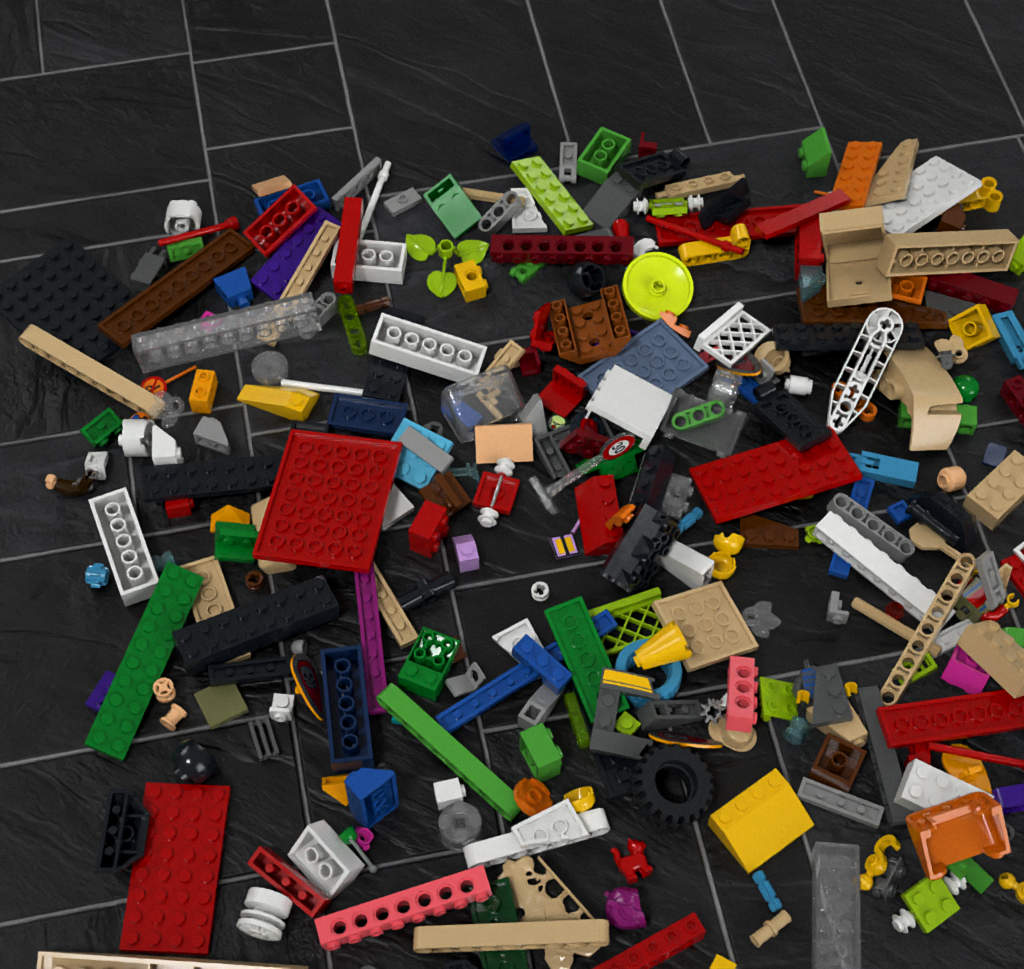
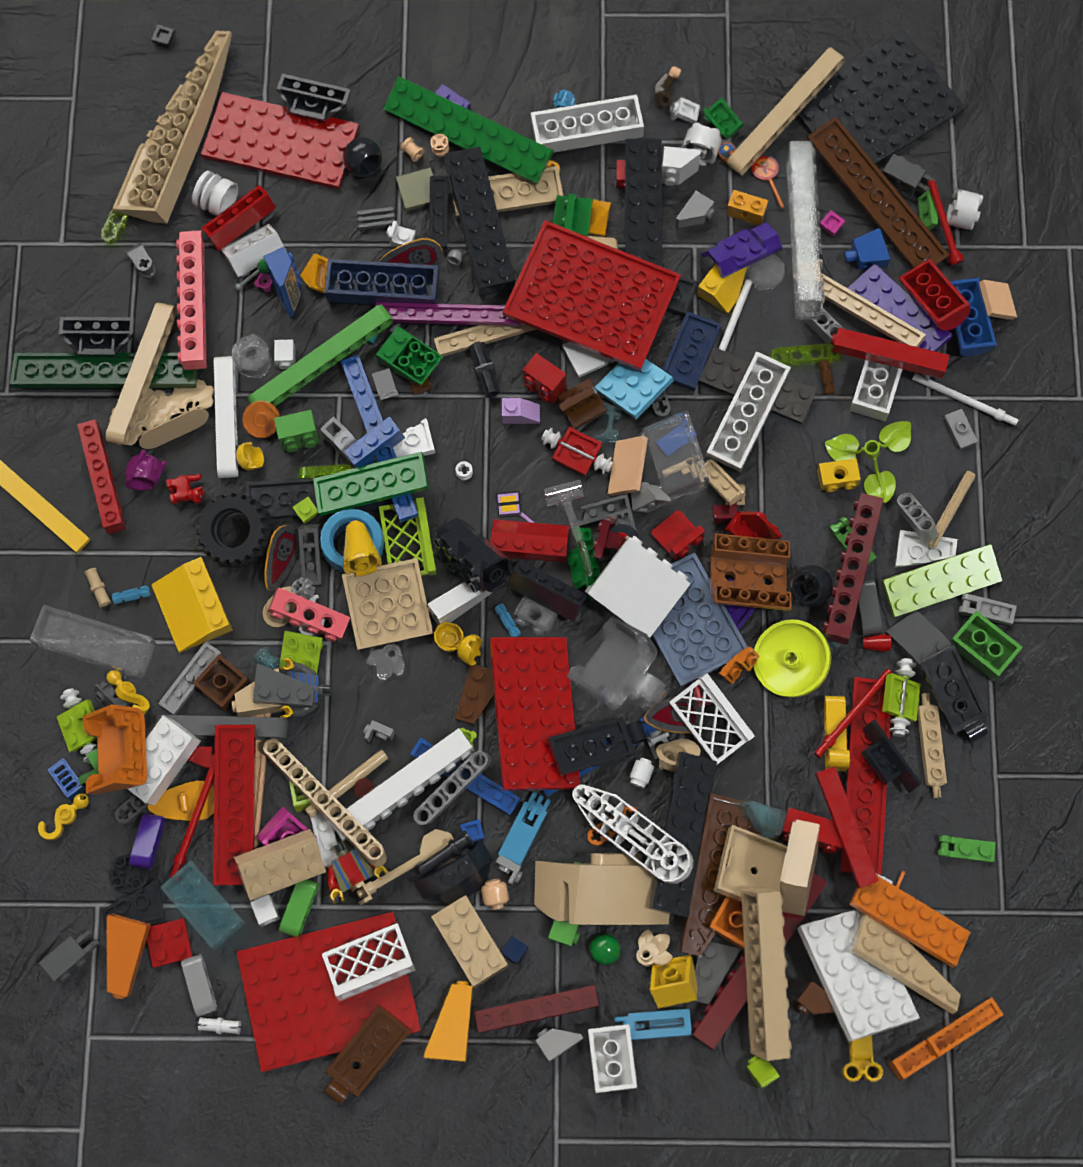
camera: 105 degrees right, 15 degrees up
(160, 562) = (566, 156): clear light blue wheel -> none
(164, 408) = (731, 171): clear plate -> none
(250, 384) = (744, 249): none -> dark purple piece
(250, 584) = (535, 224): reddish brown bush -> none
(357, 183) = (989, 385): light grey tile -> none
(425, 449) = (629, 389): light grey tile -> none
(452, 206) = (938, 472): green slope -> none
(515, 143) = (1025, 559): clear blue bracket -> none
(550, 826) = (226, 423): white wing -> none
(556, 421) = (646, 524): tile -> none
(603, 737) = (294, 483): dark grey wedge -> none
(622, 516) = (503, 541): orange slope -> none
(643, 246) = (855, 659): white piece -> none
(645, 147) = (997, 700): dark red panel -> none
(705, 409) = (620, 662): bright green beam -> none
(780, 153) = (967, 849): none -> bright green plate
(815, 154) = (950, 882): bright green slope -> none
(925, 468) = (508, 866): none -> light grey bracket
(939, 146) = (945, 1039): none -> orange slope
(946, 359) = (635, 930): dark grey hinge -> none
(990, 579) = (355, 872): light grey plate -> none
(997, 892) = (77, 789): none -> blue slope

